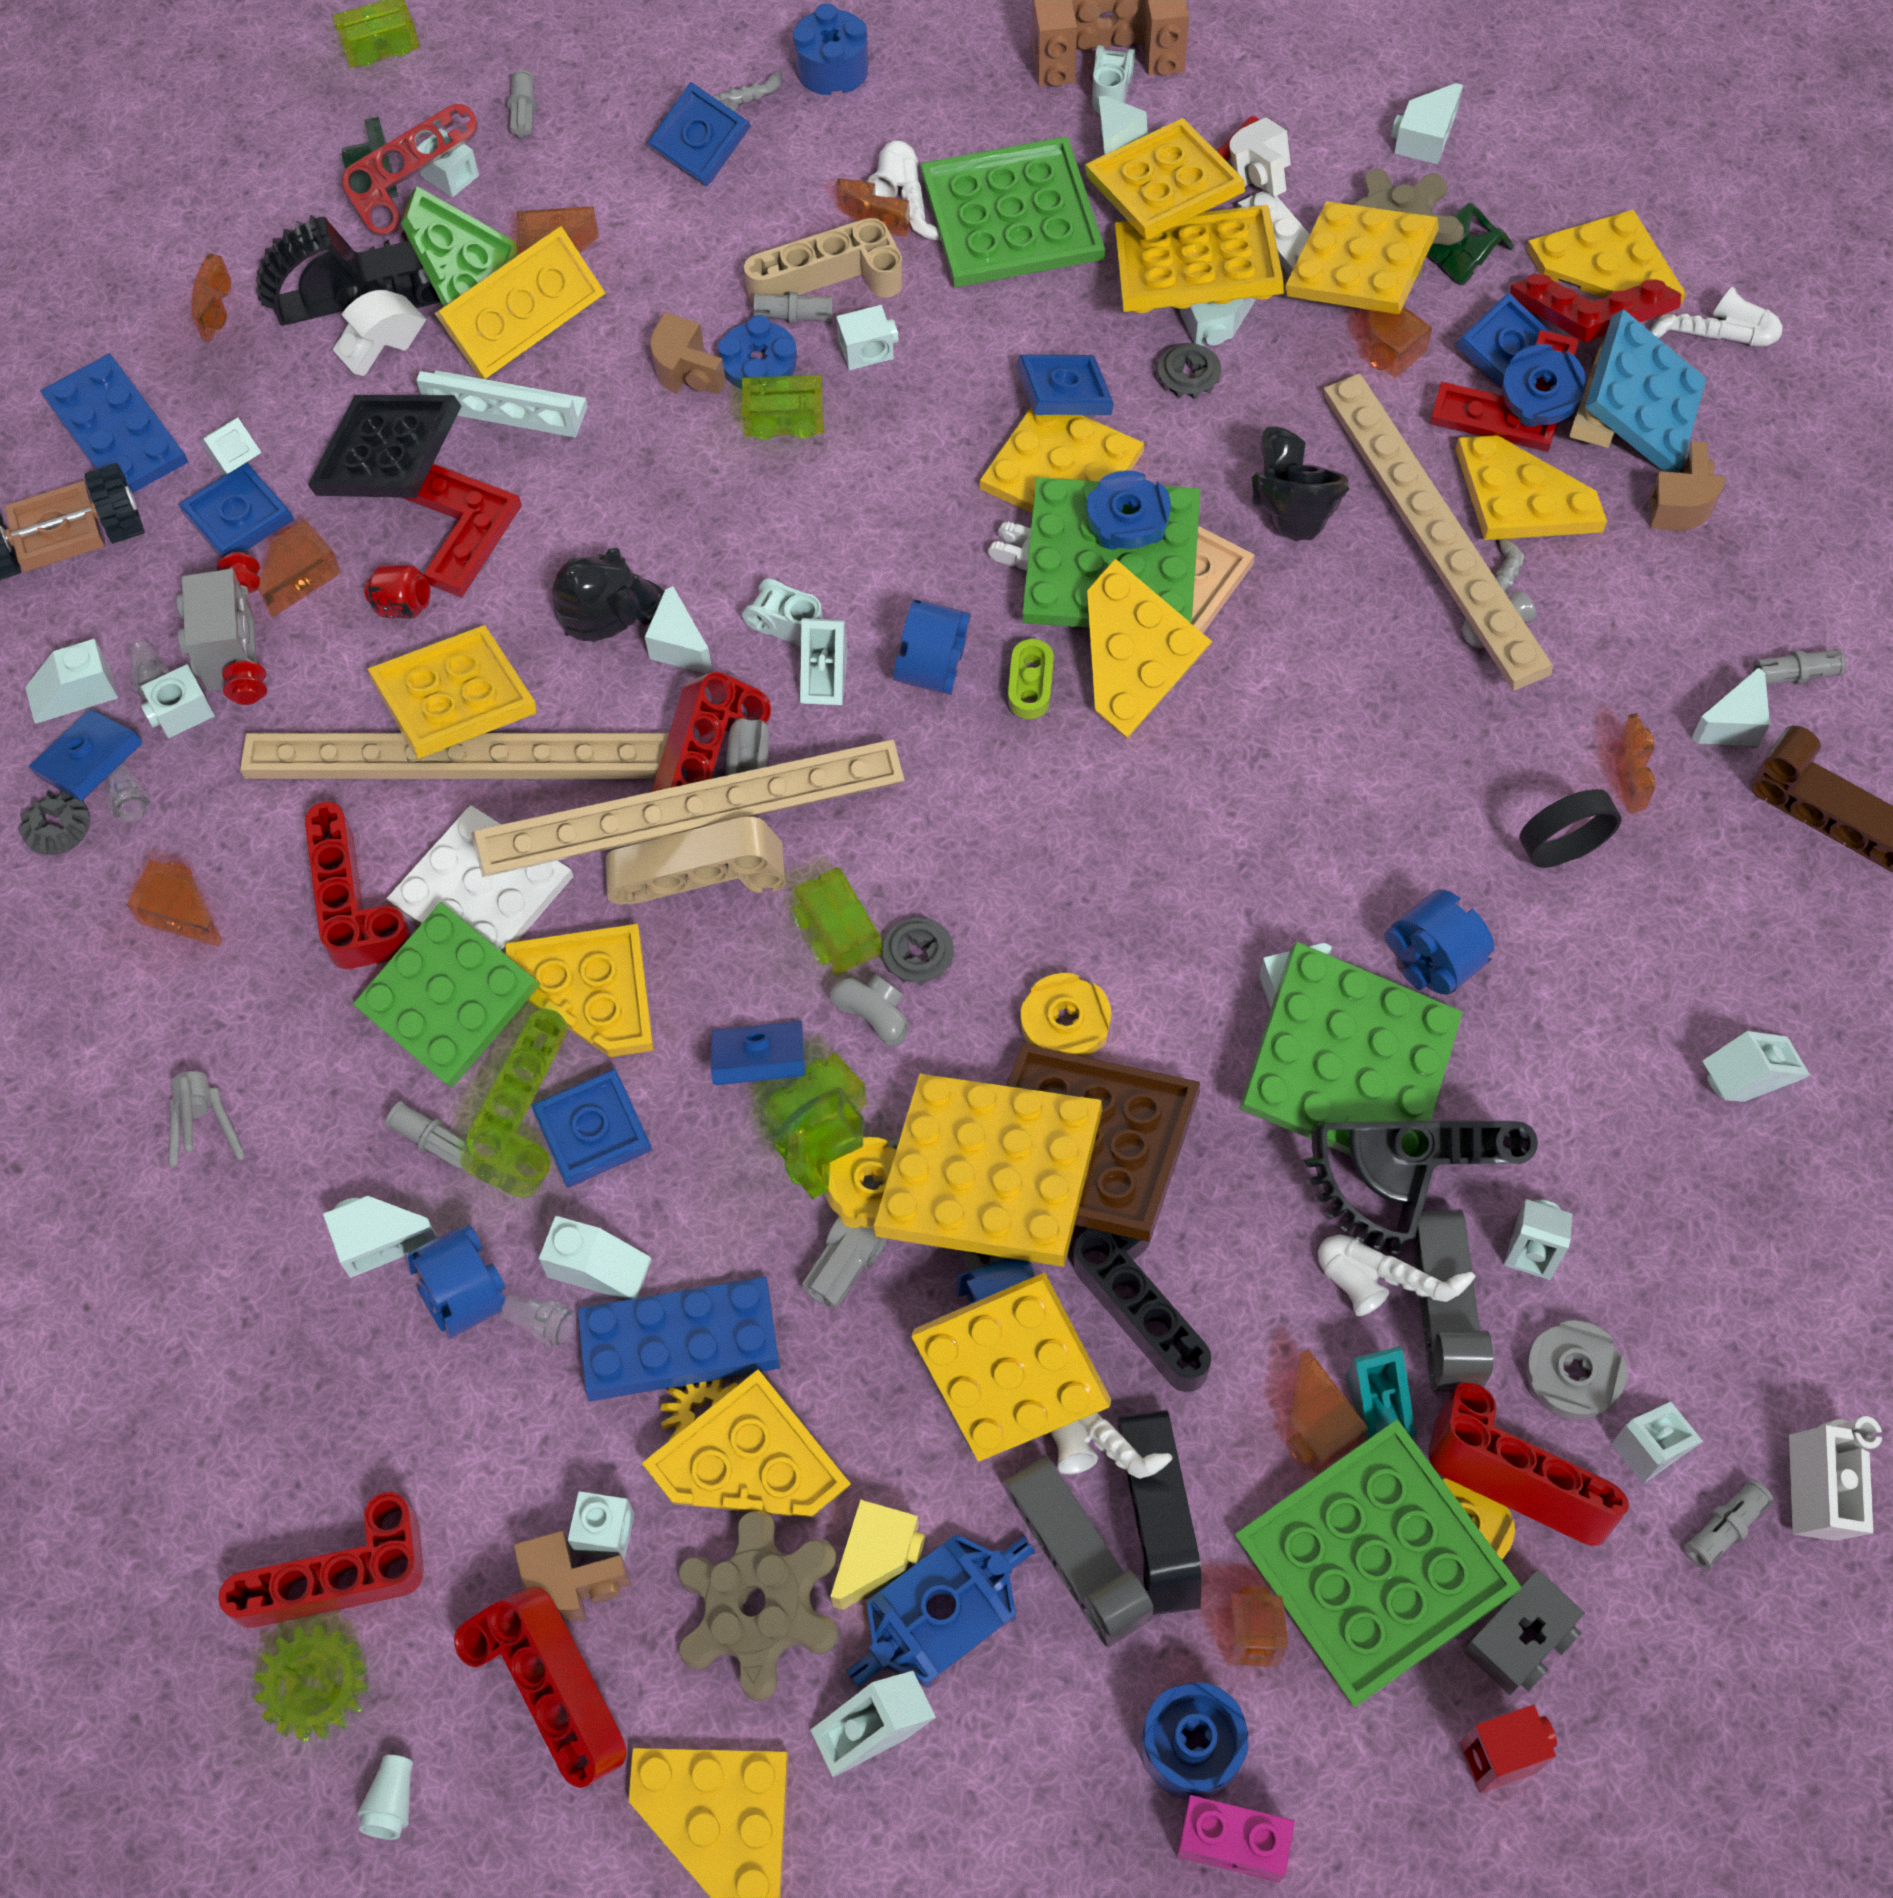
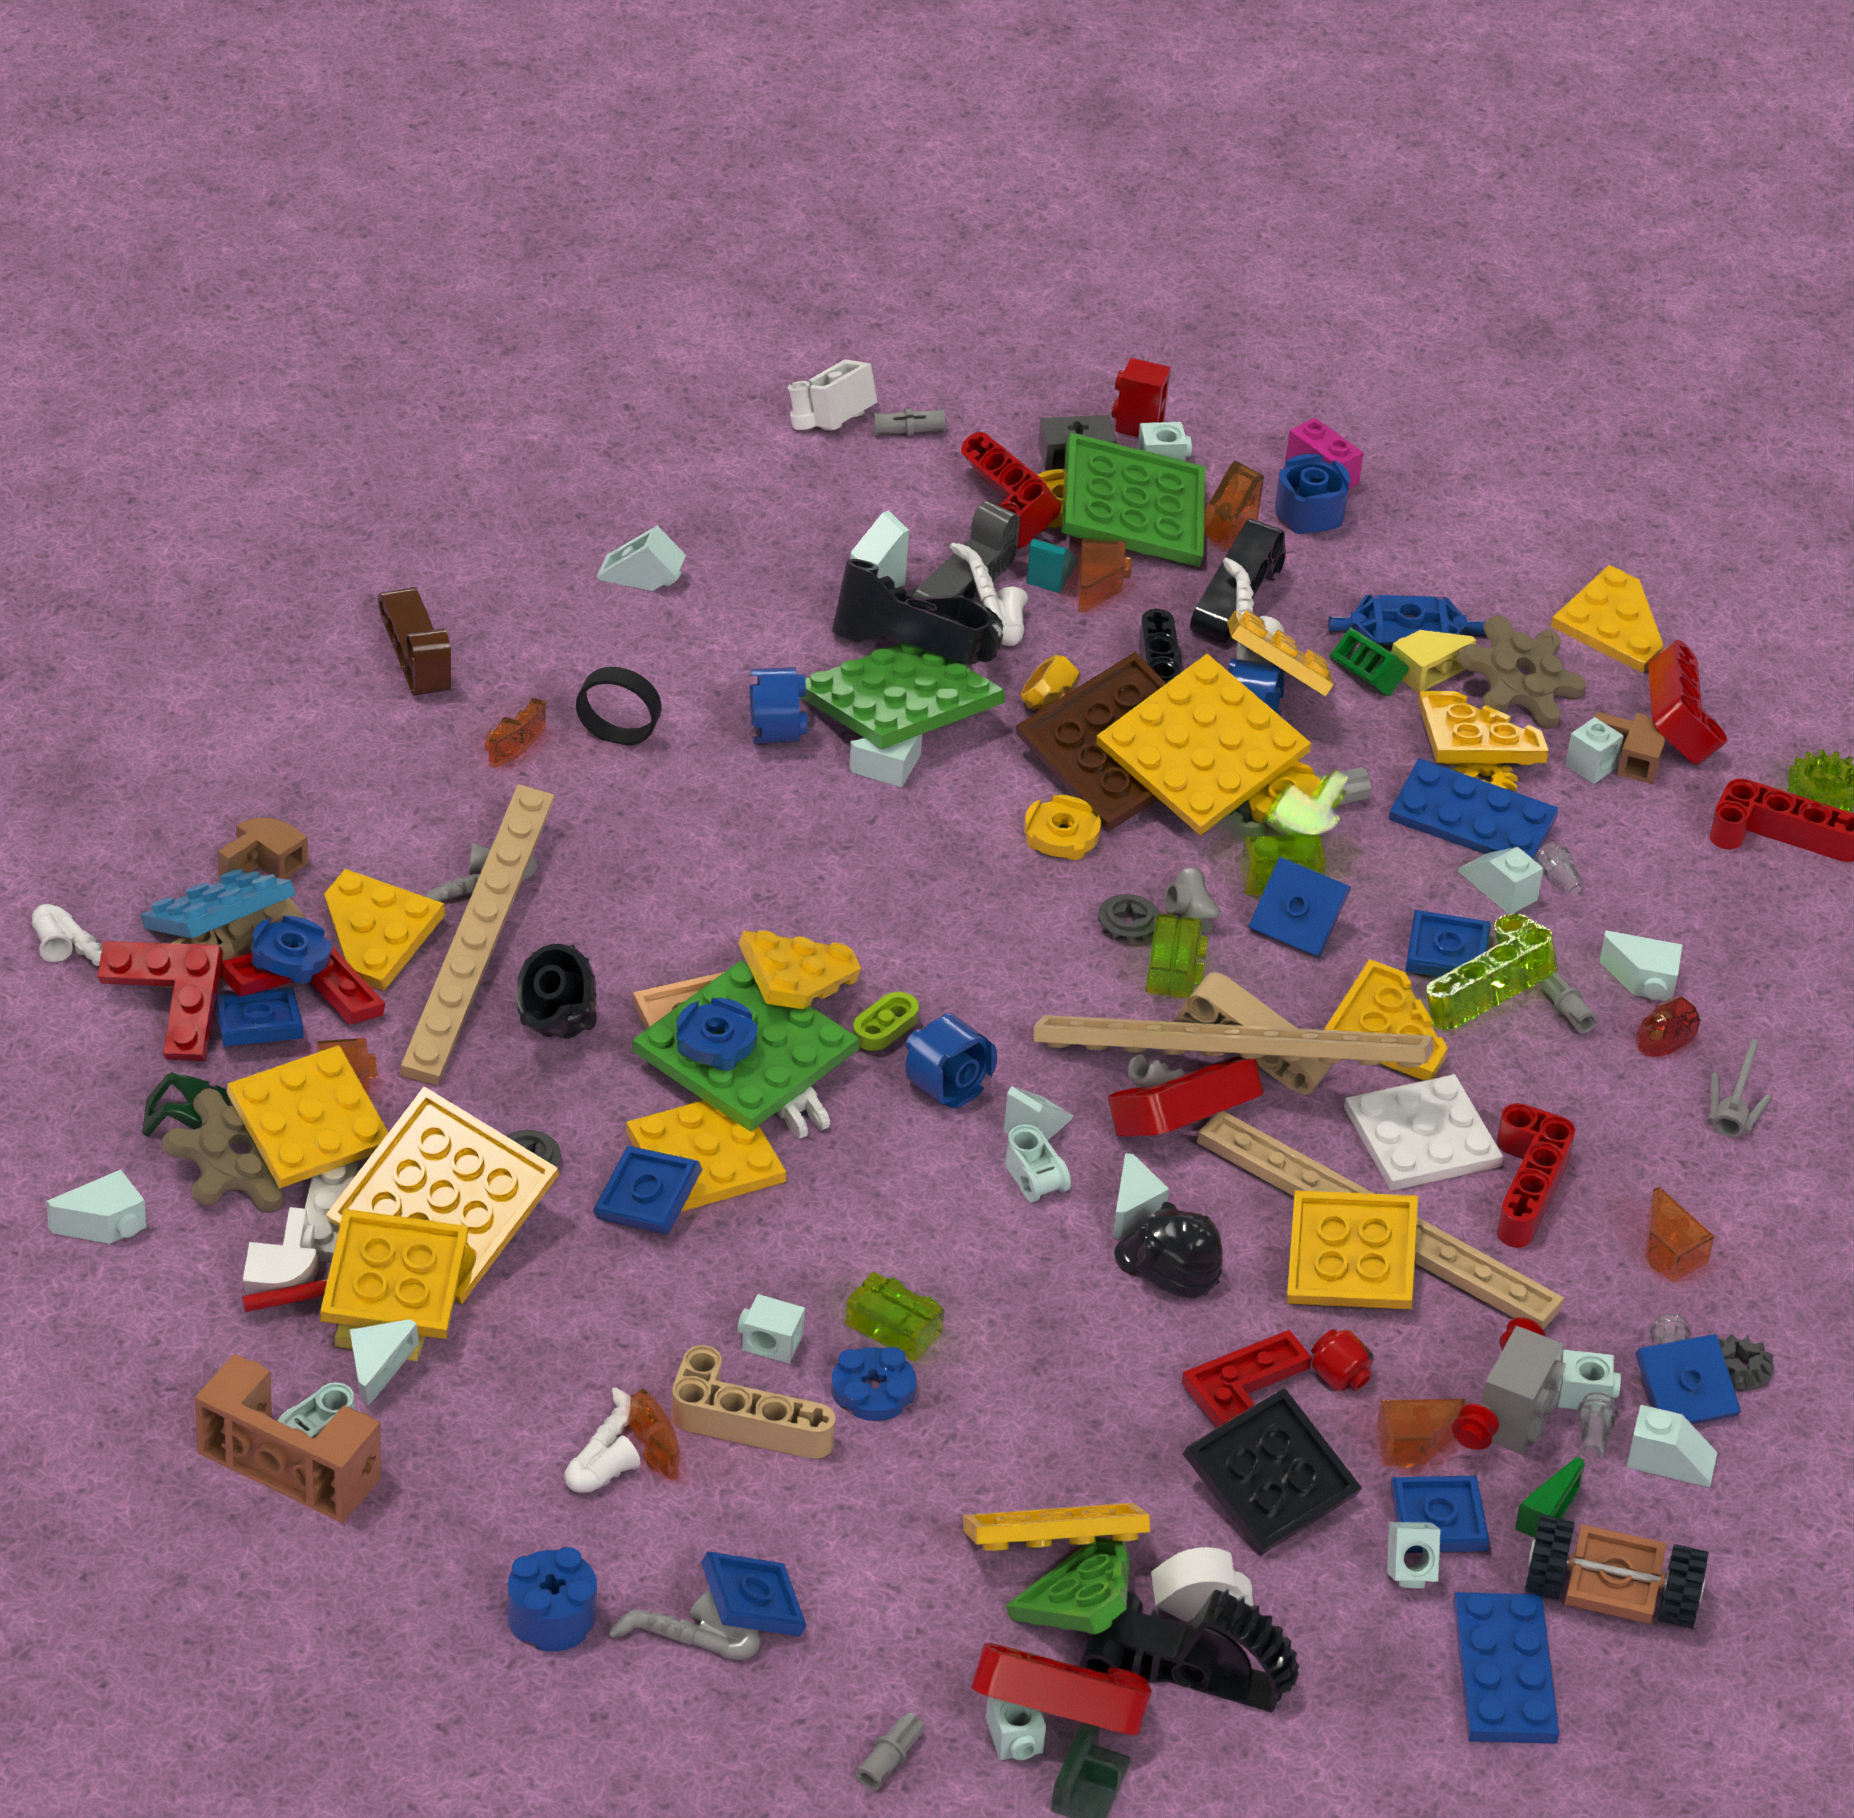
camera: 150 degrees left, 20 degrees down
(148, 565) = (1551, 1497): none -> green slope
(206, 304) = (1347, 1716): clear orange slope -> none
(312, 1168) = (1668, 1027): none -> clear red rock
(388, 1799) = (1813, 714): light aqua cone -> none
(446, 994) = (1497, 1066): bright green plate -> none
(456, 1281) = (1606, 897): blue brick -> none
(508, 402) = (1132, 1468): light aqua fence -> none
(577, 222) = (971, 1584): clear orange slope -> none
(679, 356) = (947, 1410): medium nougat brick -> none
(793, 307) = (786, 1384): light grey pin -> none
(872, 1722) = (1488, 592): light aqua slope -> none
(938, 1495) = (1387, 672): none -> green slope
(1012, 211) = (535, 1364): bright green plate -> none
(1105, 1594) = (1306, 585): dark grey beam -> none
(1230, 1198) = (1050, 682): none -> yellow rock
(1440, 1689) = (1165, 440): none -> light aqua brick
(1599, 1358) = (935, 513): light grey plate -> none
(1603, 256) = (93, 1036): yellow plate -> none
(1655, 1441) = (911, 464): light aqua slope -> none
(1739, 716) = (410, 717): light aqua slope -> none
(1802, 666) = (327, 724): light grey pin -> none

